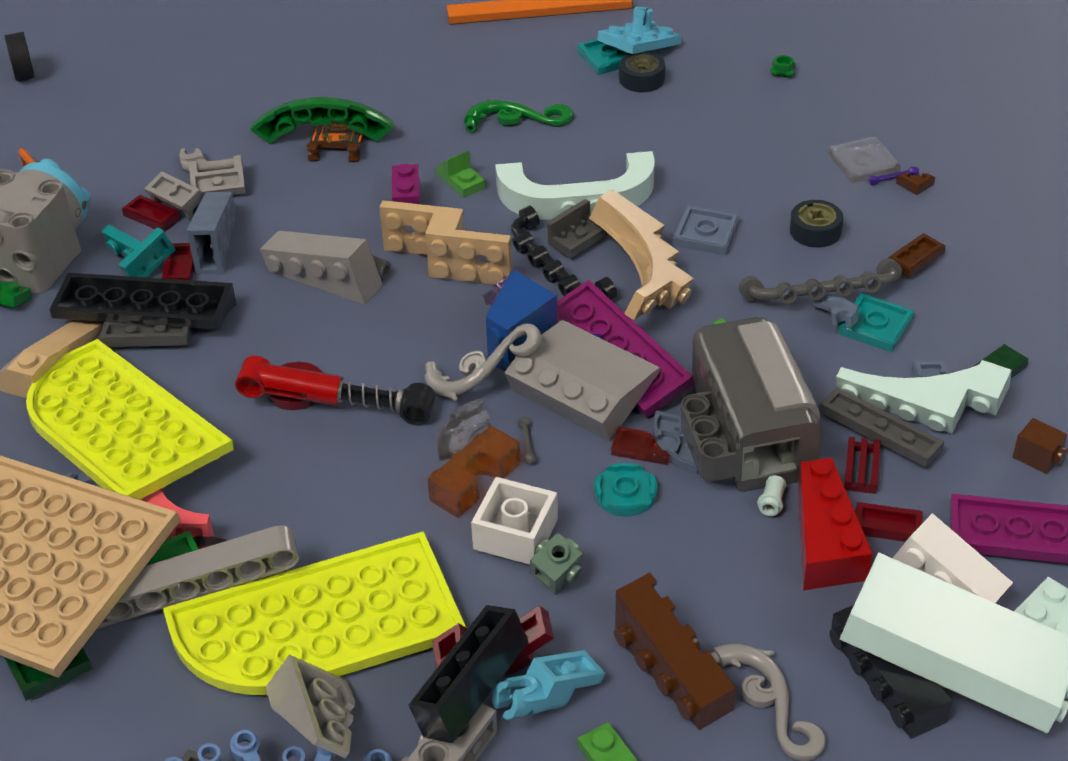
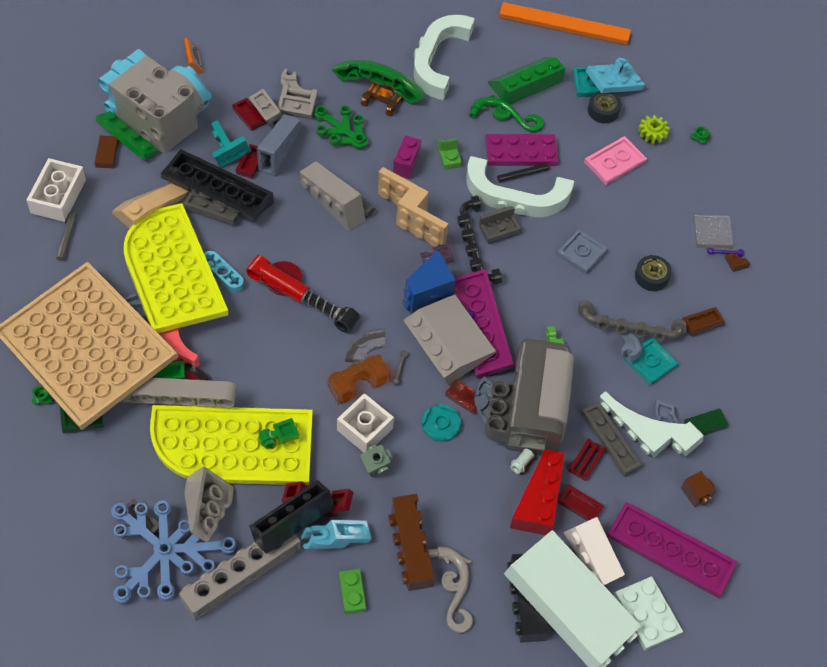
camera: 15 degrees right, 15 degrees up
(217, 410) = (224, 279): none -> medium azure beam
(325, 197) = (357, 139): none -> green plant
(377, 54) = (447, 27): none -> light aqua arch
(393, 569) = (283, 431): none -> green plate
(482, 365) = (394, 310): light grey plant -> none
(527, 71) = (528, 79): none -> green slope
(559, 145) = (521, 149): none -> magenta plate
(575, 168) = (523, 172): none -> black bar
(653, 257) = (534, 246): tan arch -> none
(689, 123) = (615, 160): none -> bright pink tile
(720, 75) = (653, 129): none -> lime gear

